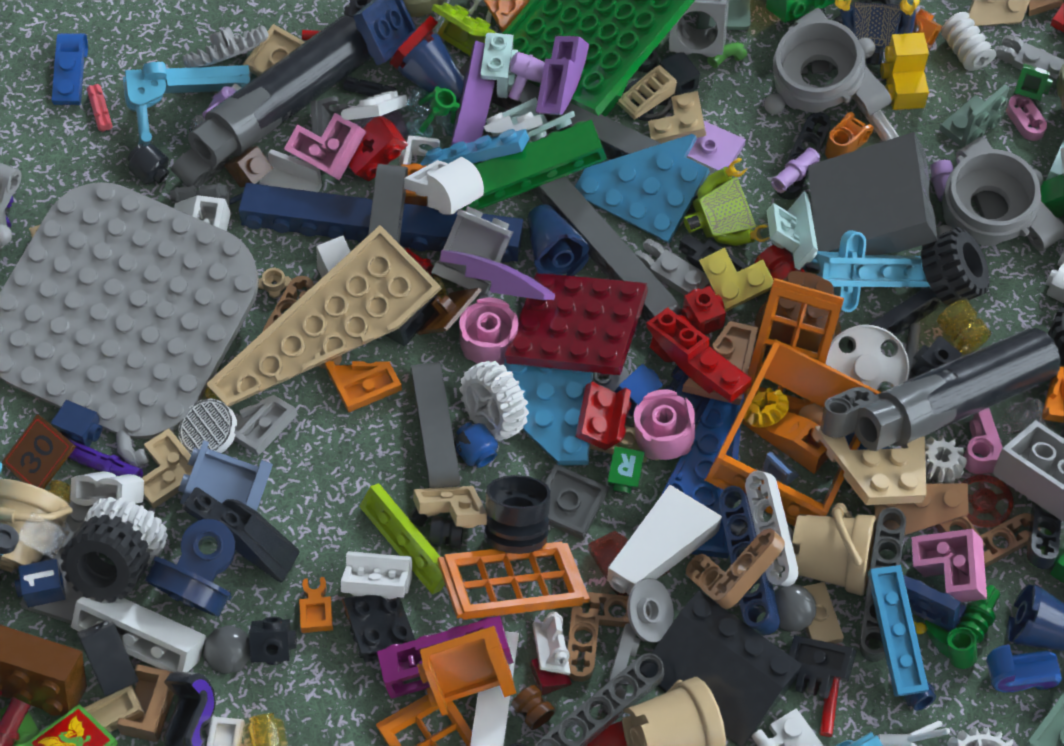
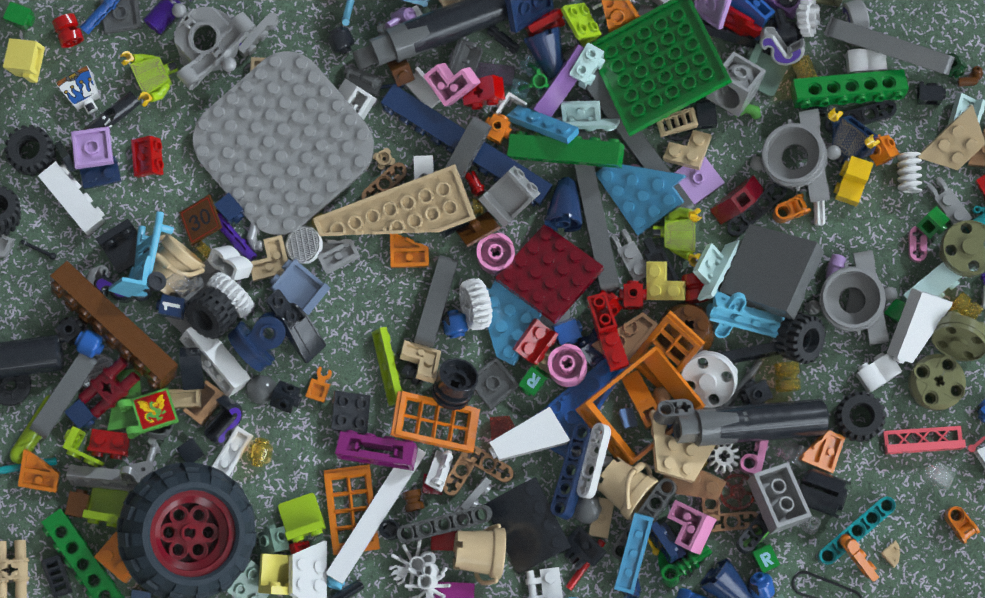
camera: 30 degrees right, 20 degrees up
(28, 198) = (259, 34): none -> light grey hinge
(375, 106) = (494, 69): white hinge -> none
(377, 575) = (359, 386): white brick -> none
(447, 185) = (510, 147): white brick -> none
(465, 667) = (381, 465): orange panel -> none
(499, 124) = (569, 115): white slope -> none
(502, 277) = (518, 225): medium lavender slope -> none
(526, 68) = (602, 81): lavender piece -> none
(561, 74) = (619, 97): medium lavender slope -> none
(650, 609) = (502, 476): light grey dish -> none
(737, 580) = (552, 484): medium nougat beam -> none
(771, 413) = (636, 385): yellow gear -> none
(773, 153) = (737, 200): none -> dark red slope
(795, 170) = (741, 222): lavender pin -> none
(975, 117) = (880, 230): sand green bracket -> none

